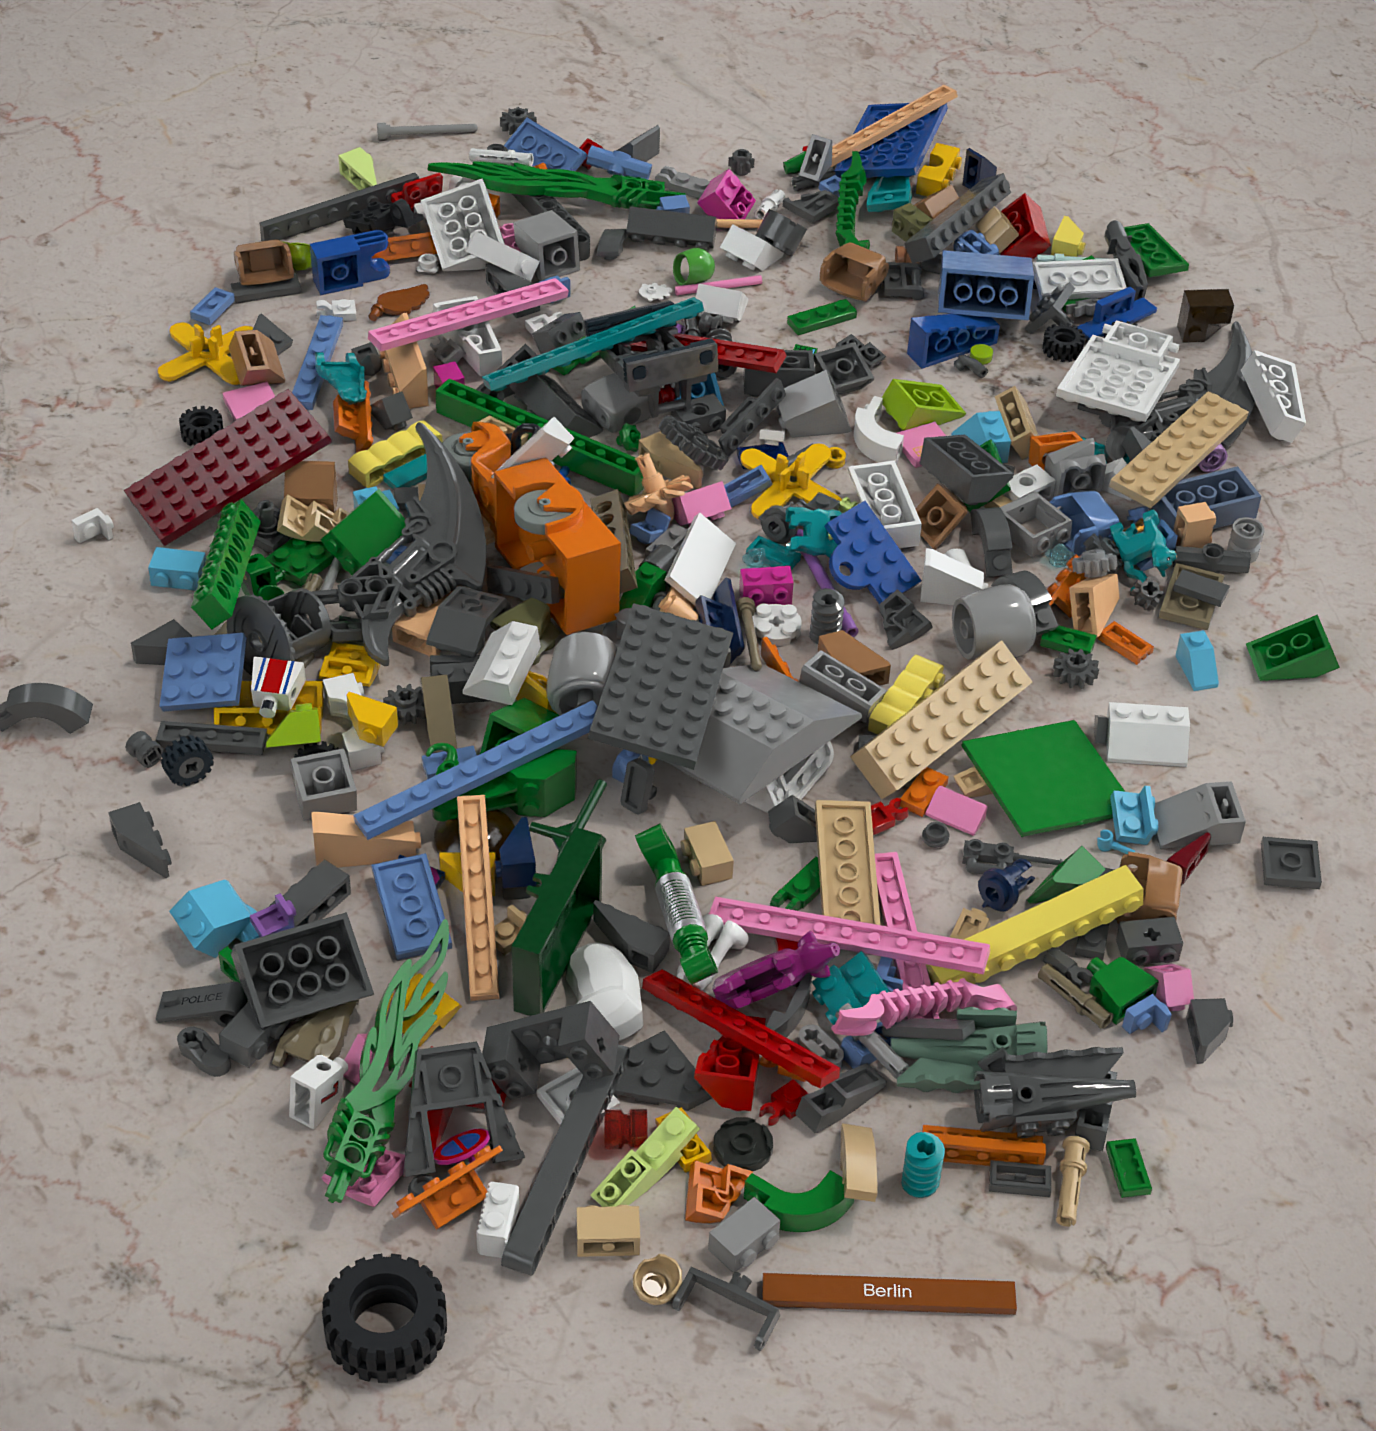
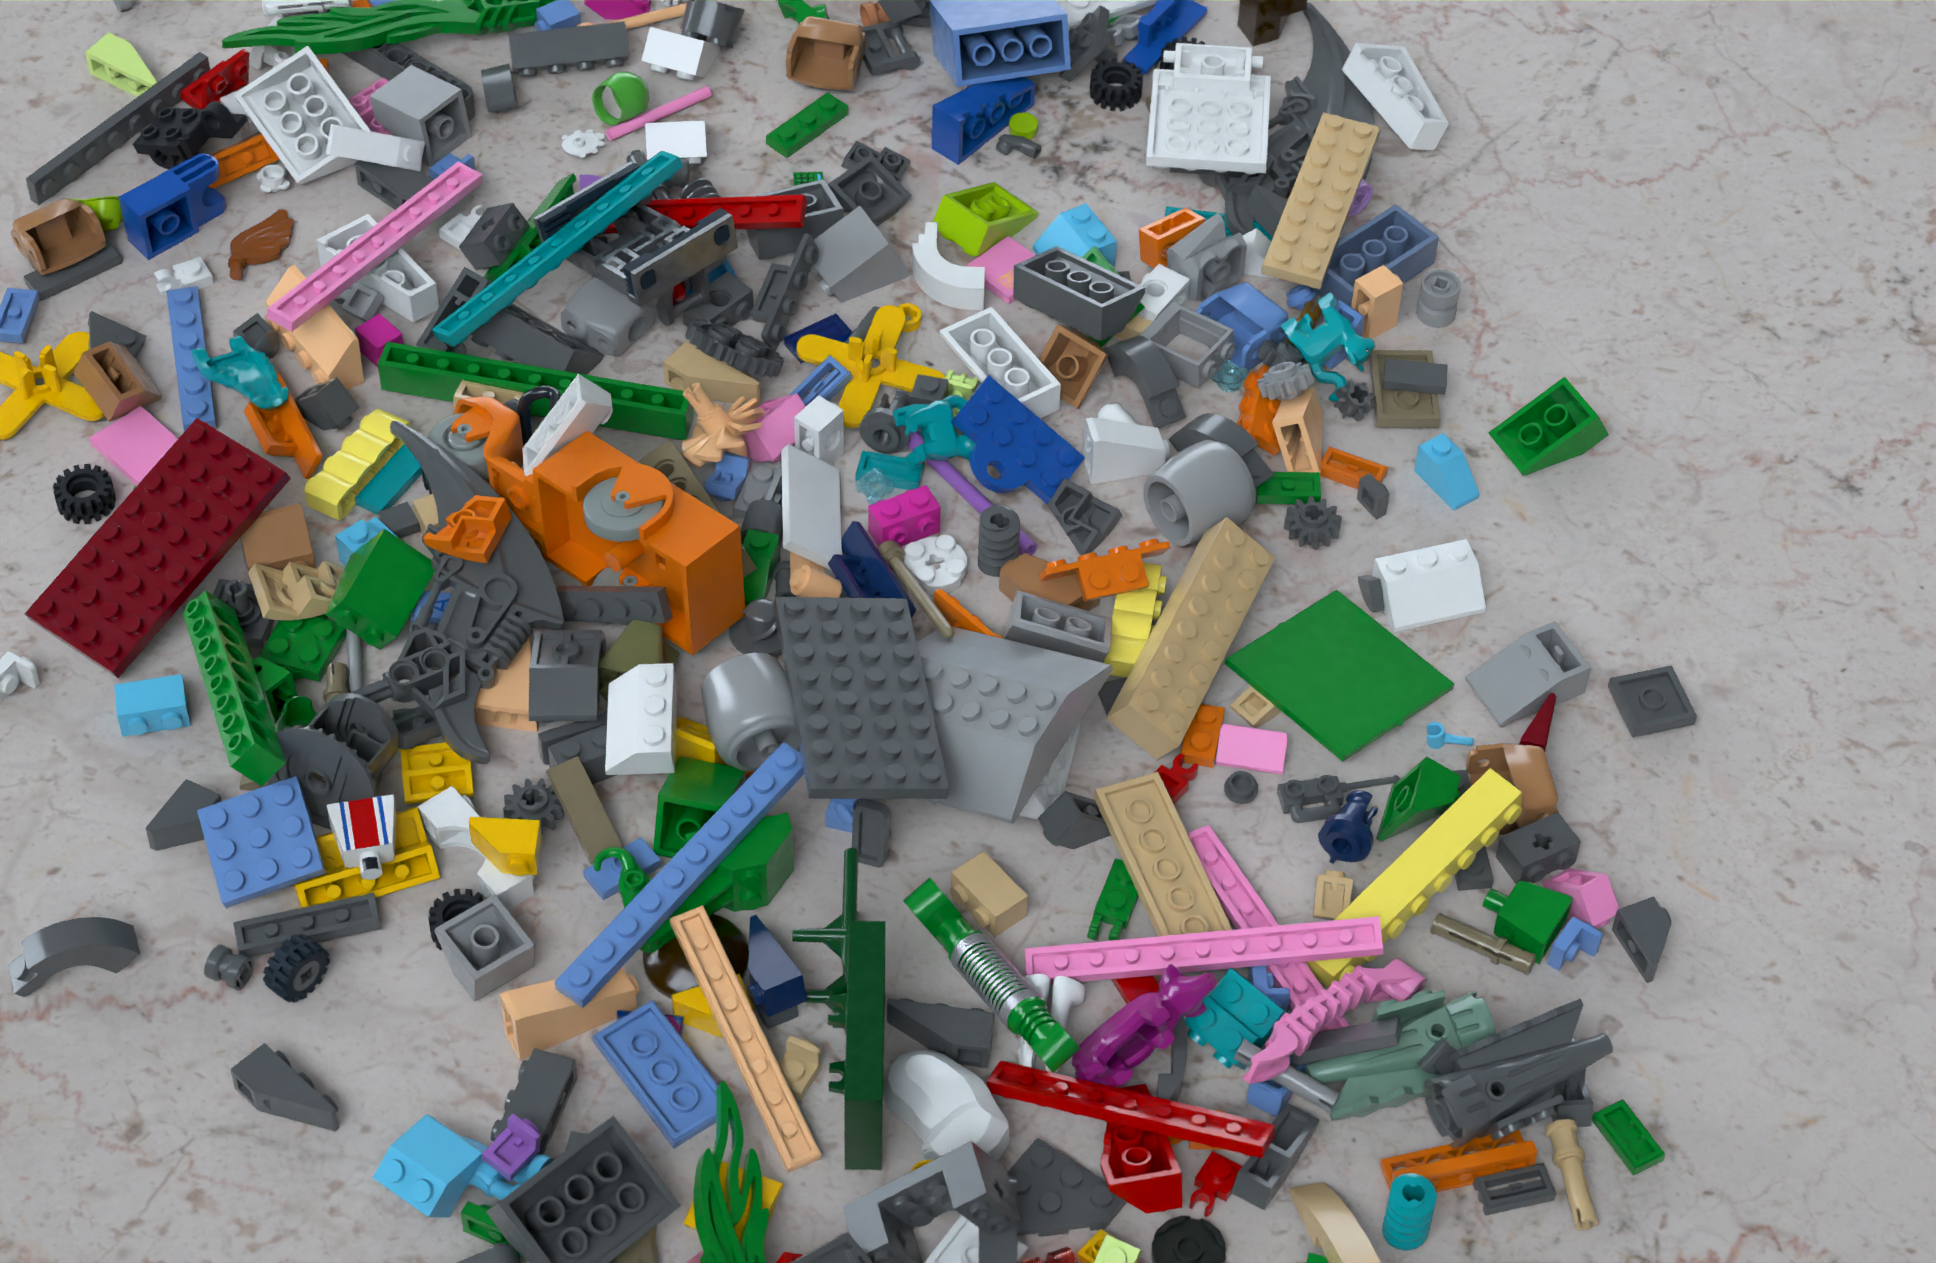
camera: 20 degrees left, 5 degrees up
(297, 727) = (416, 883): lime slope -> none
(442, 506) = (473, 529): none -> orange slope
(629, 437) = (645, 360): green piece -> none
(729, 511) = (820, 430): none -> white brick
(772, 437) = (824, 310): white plate -> none
(823, 1046) = (1226, 1099): light grey beam -> none
(897, 658) = (1108, 574): none -> orange bracket
(1017, 420) = (1110, 209): tan brick -> none
(1067, 967) = (1460, 910): dark grey bar -> none
(1132, 662) = (1373, 496): none -> dark grey plate
(1134, 816) = (1457, 695): medium azure bracket -> none
(1213, 558) = (1412, 332): dark grey piece -> none

